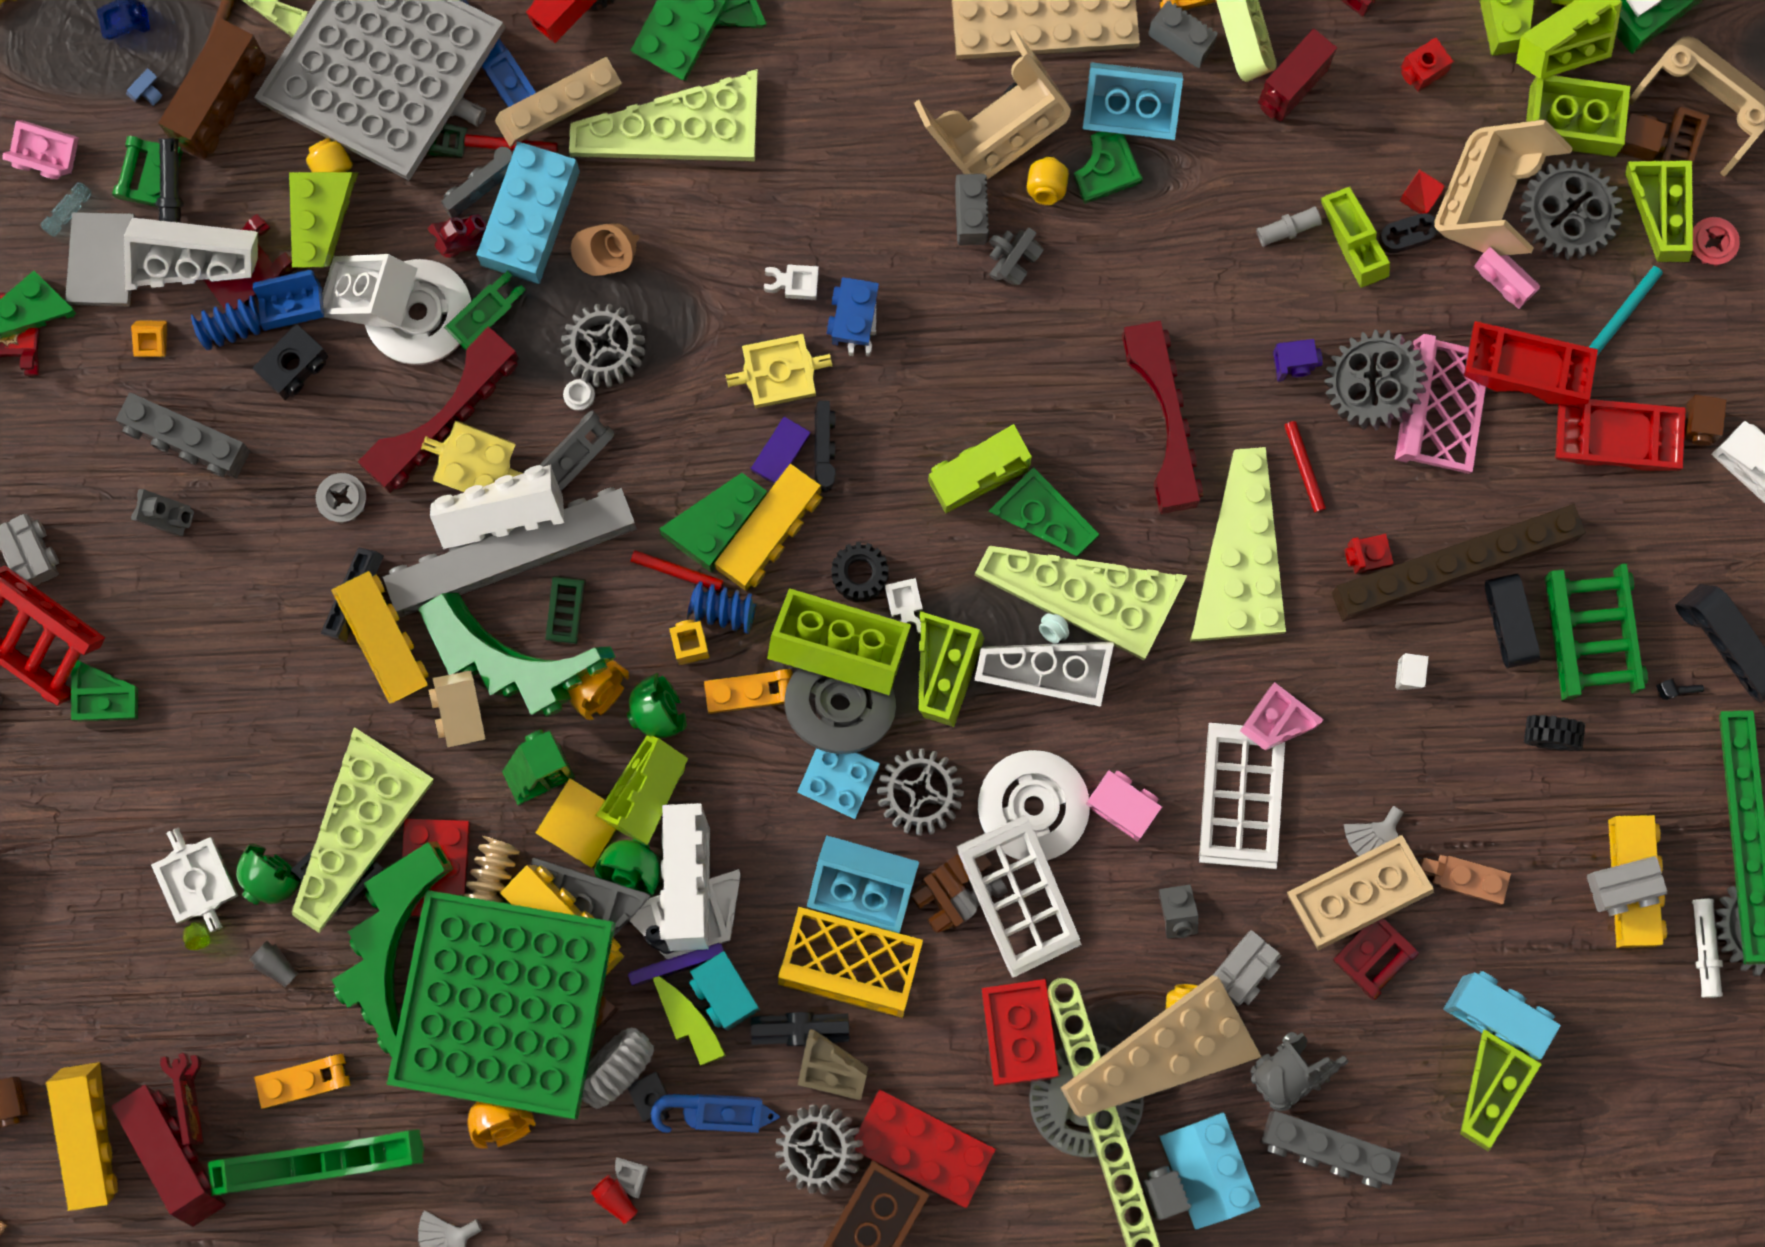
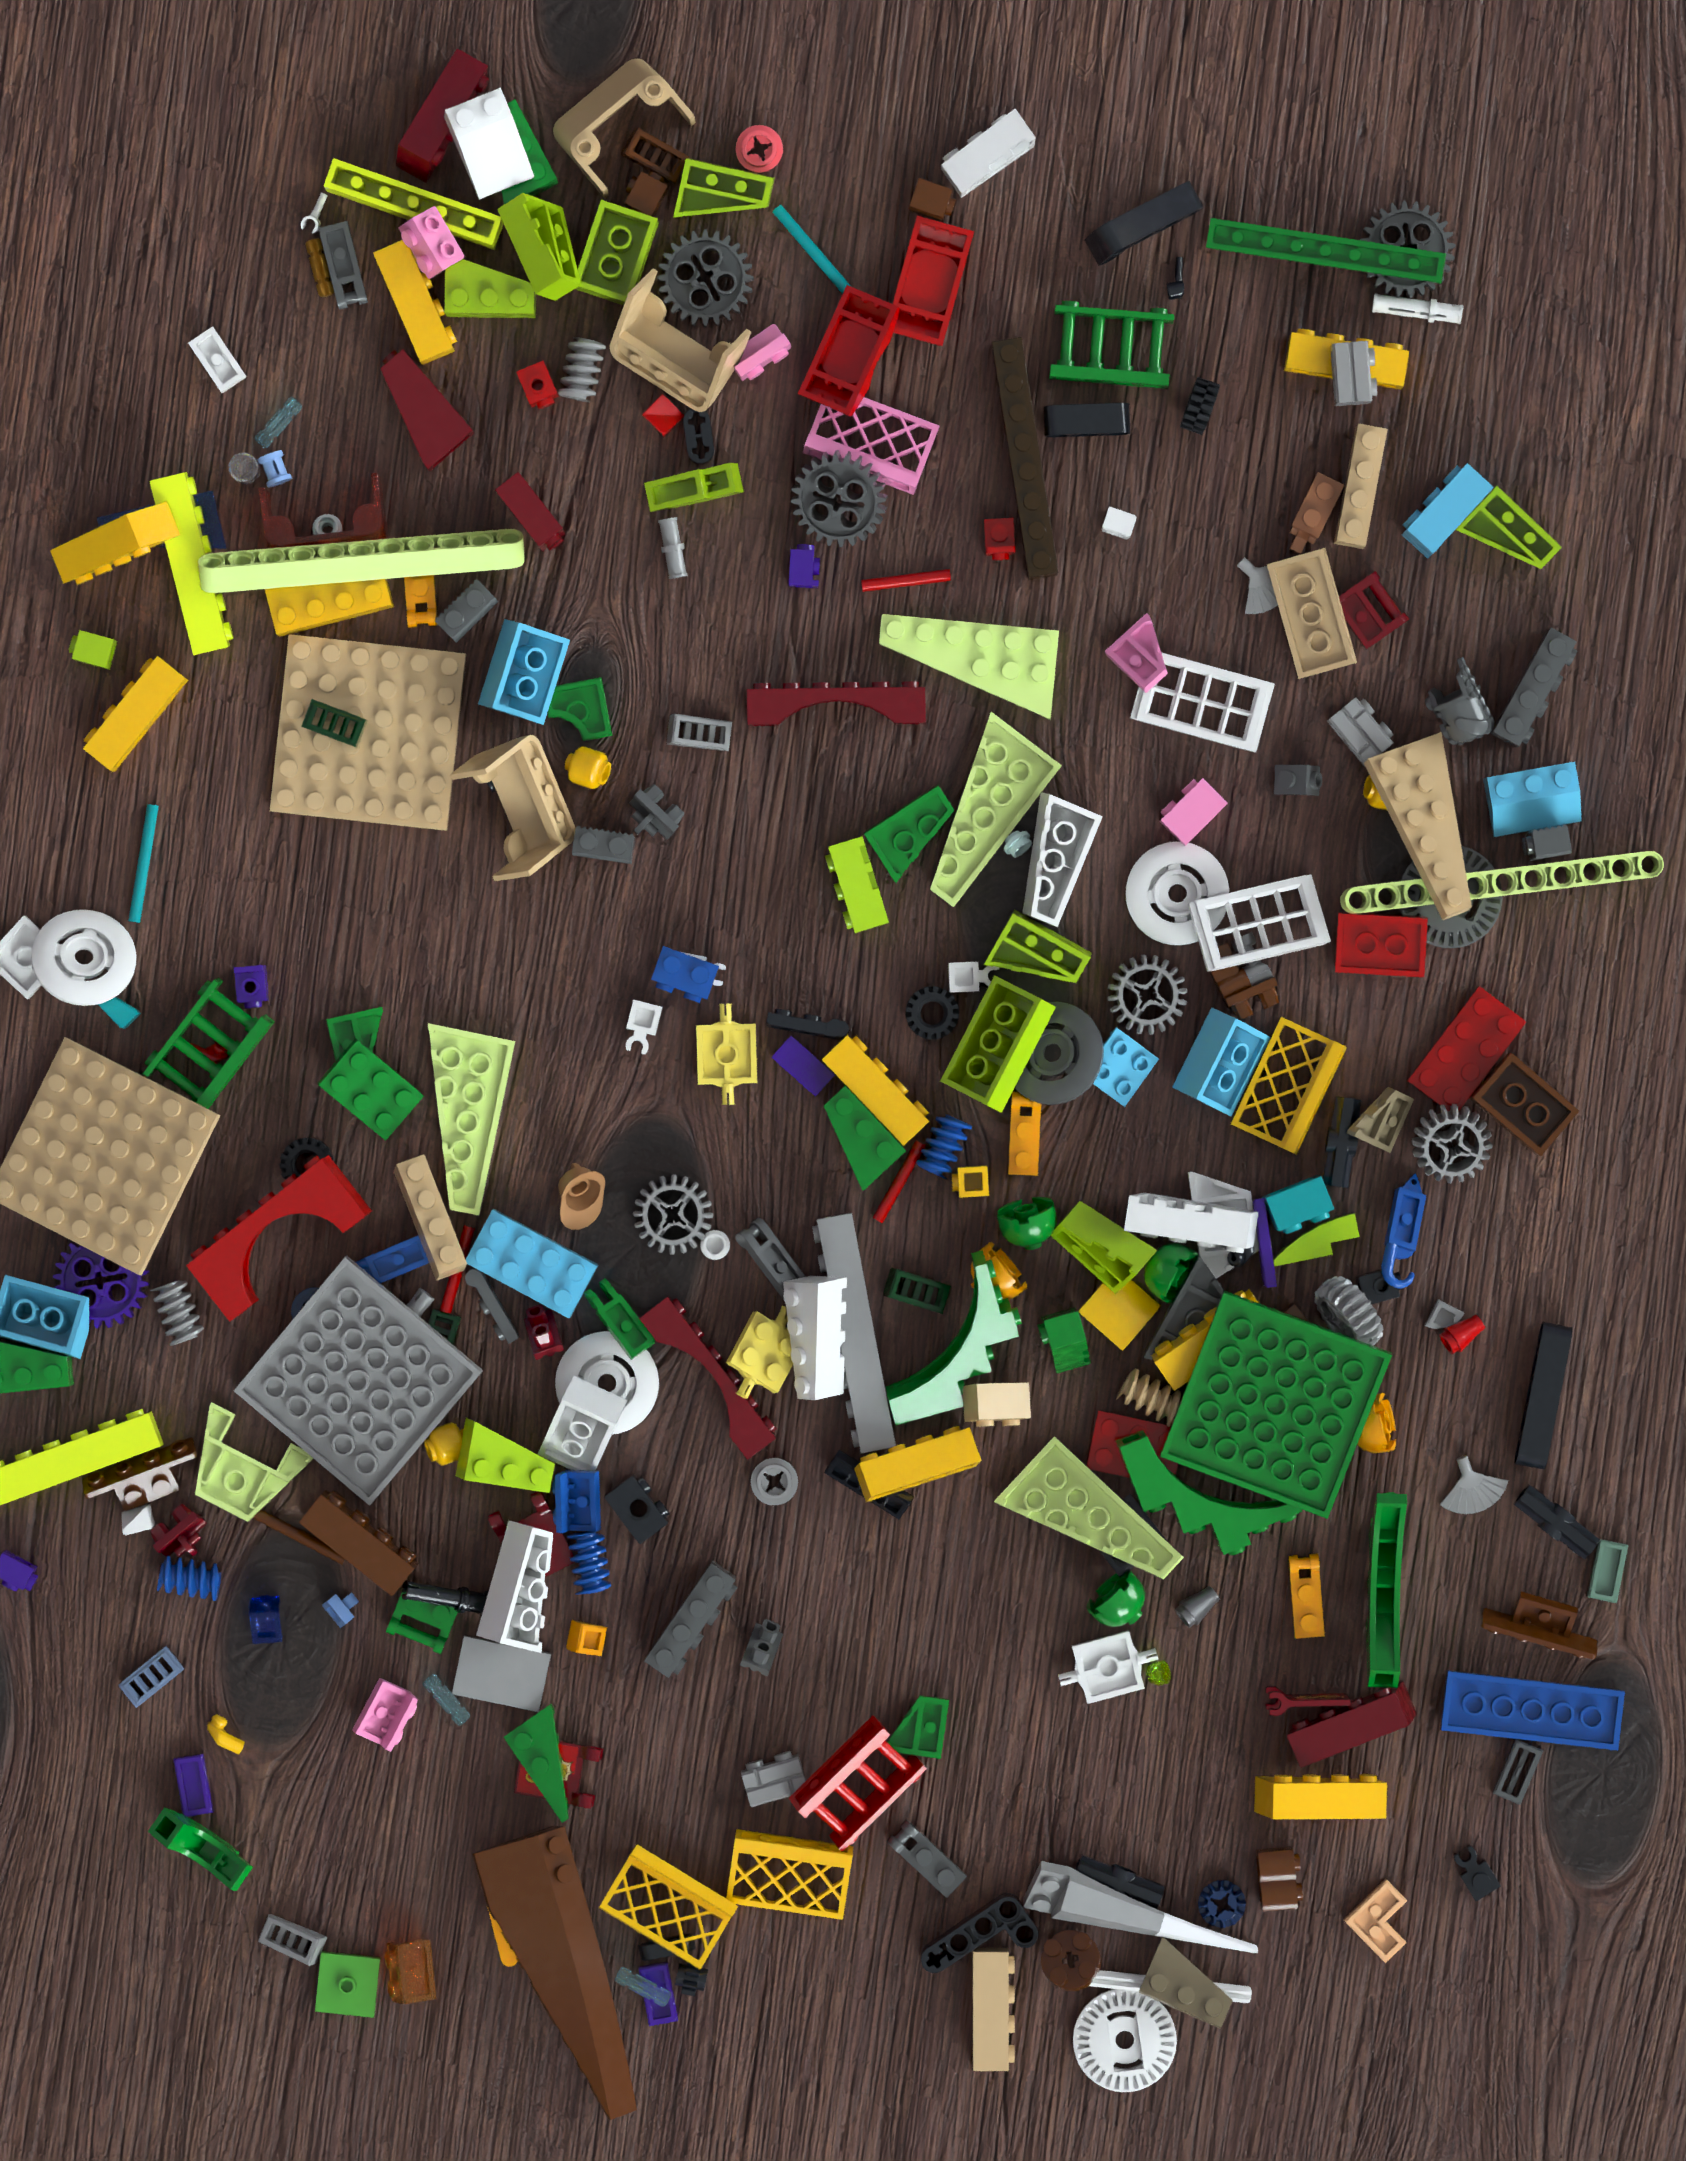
camera: 75 degrees left, 10 degrees up
(1115, 262) = (673, 732): none -> light grey slope
(1451, 103) = (581, 369): none -> light grey piece
(1506, 920) = (1360, 486): none -> tan brick

